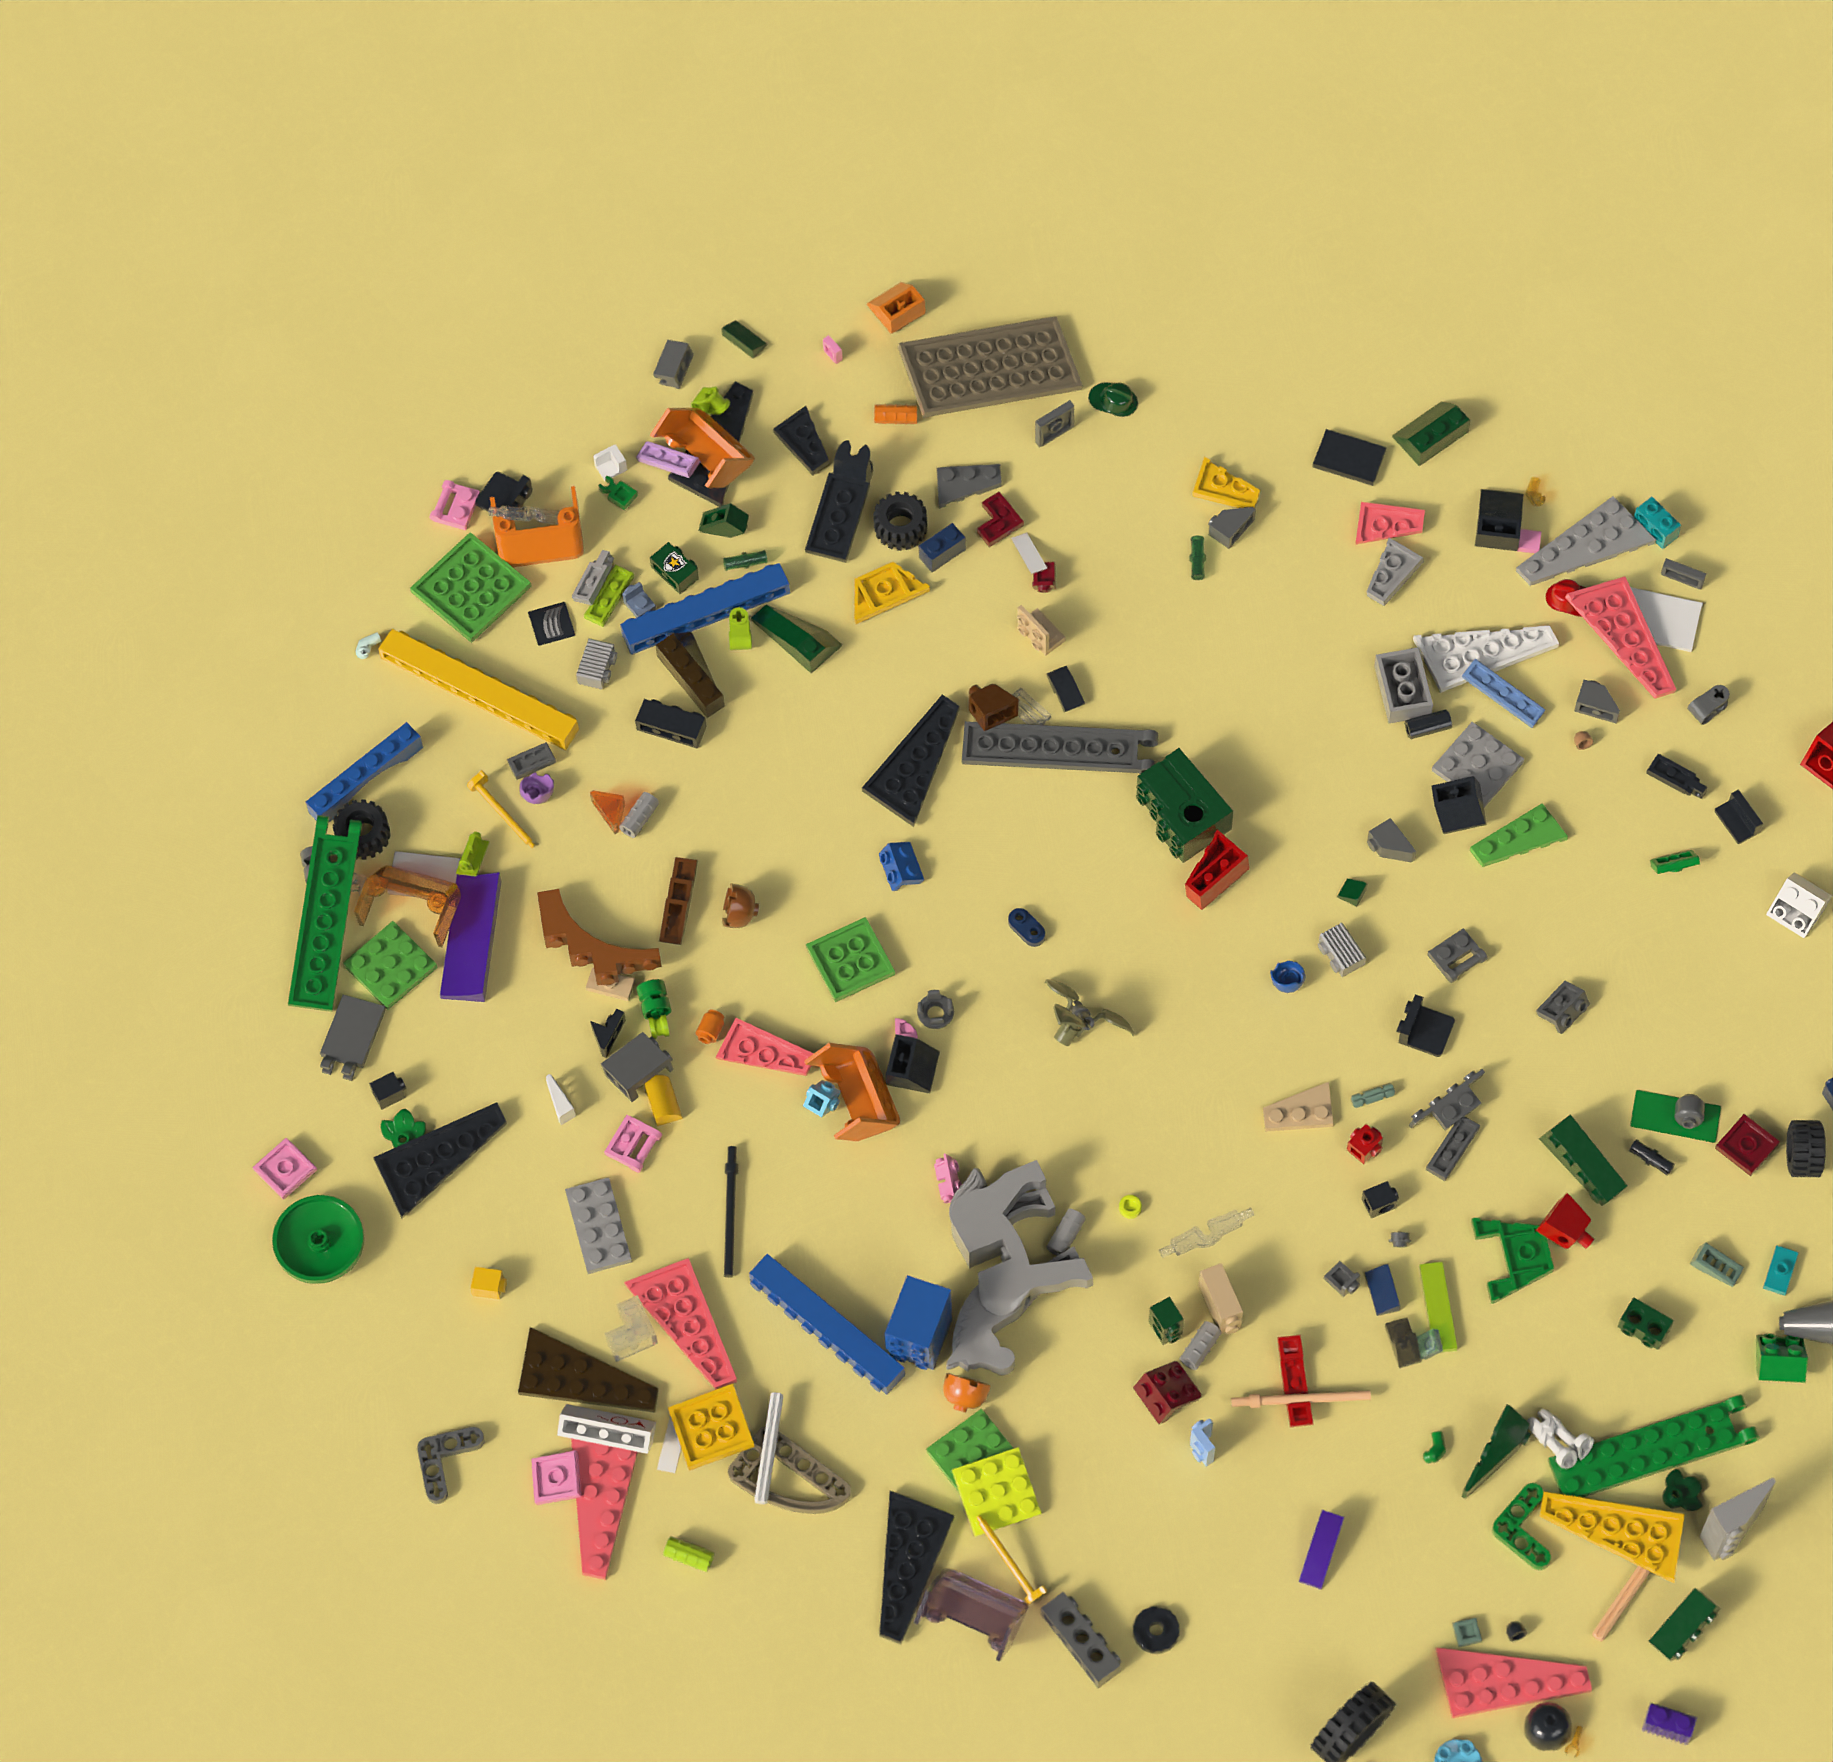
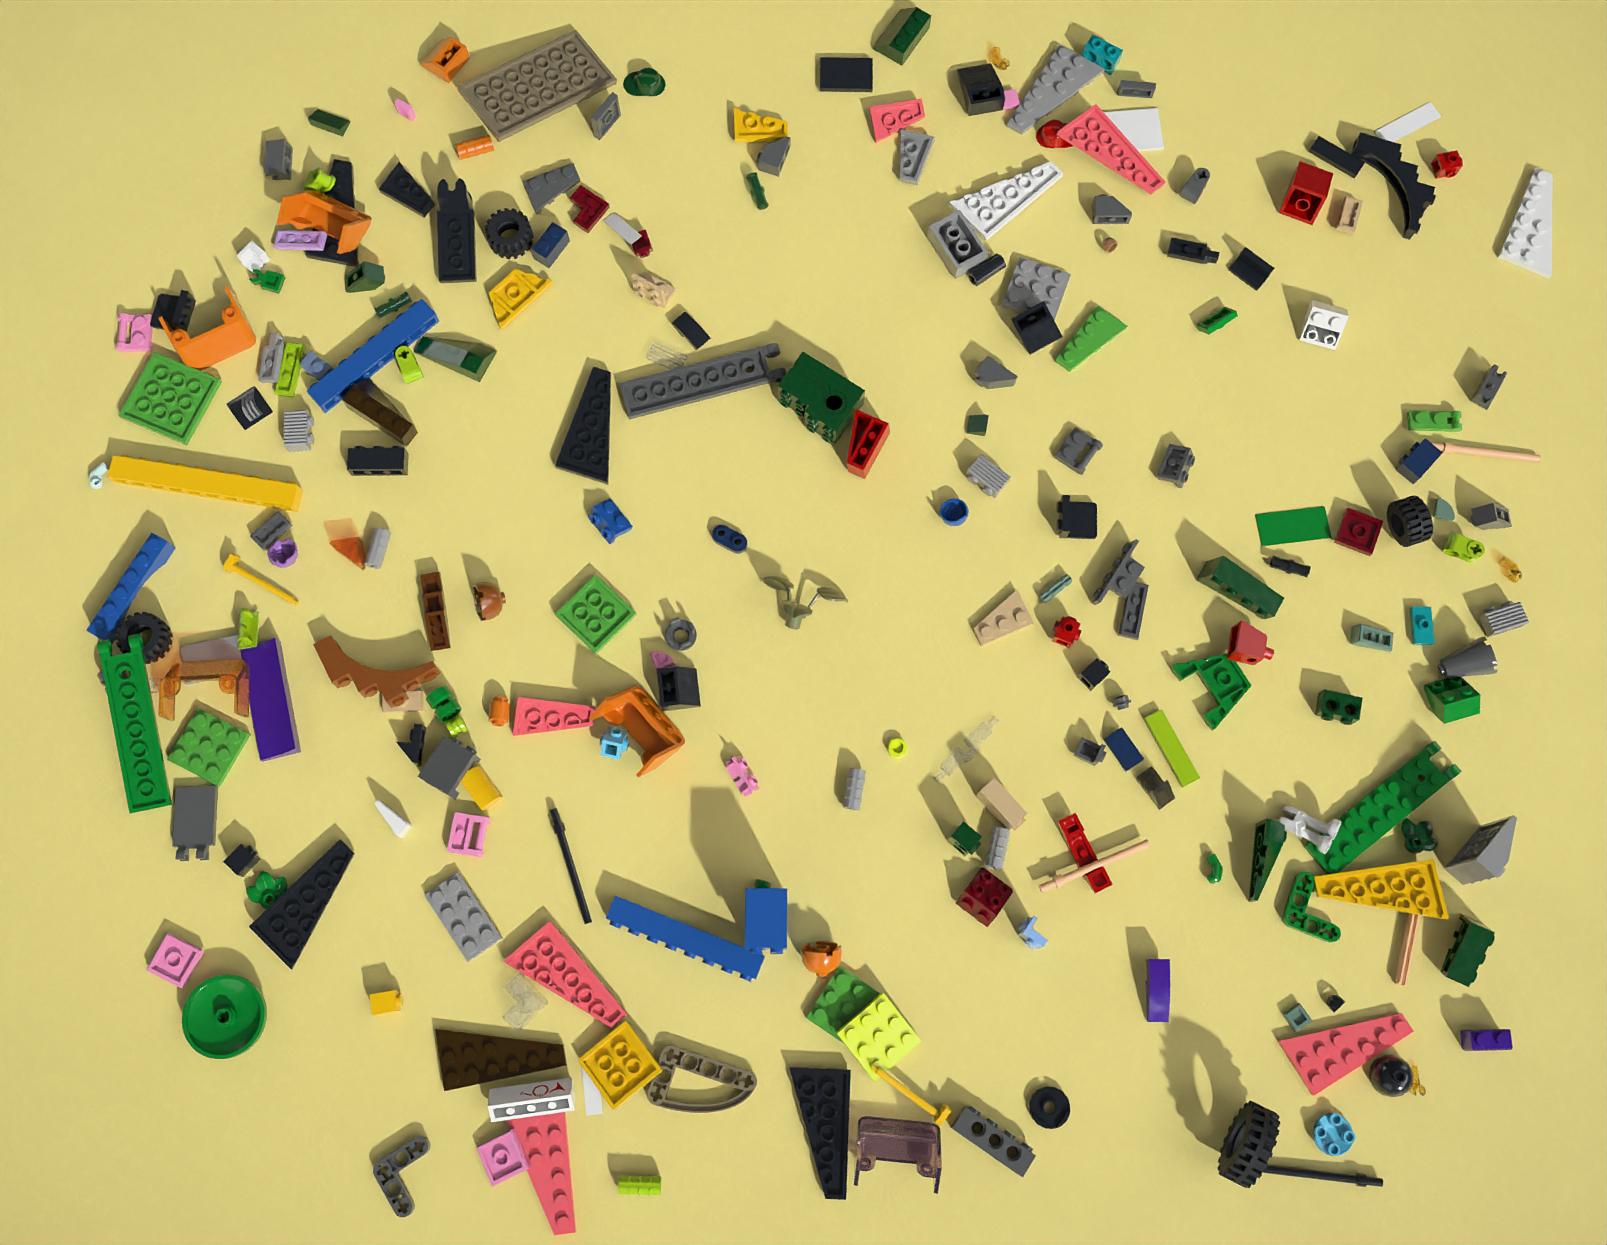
camera: 25 degrees left, 10 degrees up
(525, 513) = (192, 322): clear piece -> none
(674, 567) = (336, 329): dark green brick -> none
(769, 1448) = (675, 1067): white axle -> none
(984, 1230) = (786, 812): light grey animal -> none
(992, 705) = (637, 363): reddish brown torso -> none
(1083, 1013) = (802, 598): dark grey pin -> none
(1429, 1343) = (1178, 782): clear light blue tile -> none
(1503, 693) = (1035, 226): medium blue tile -> none
(1689, 1111) = (1306, 519): dark grey head -> none

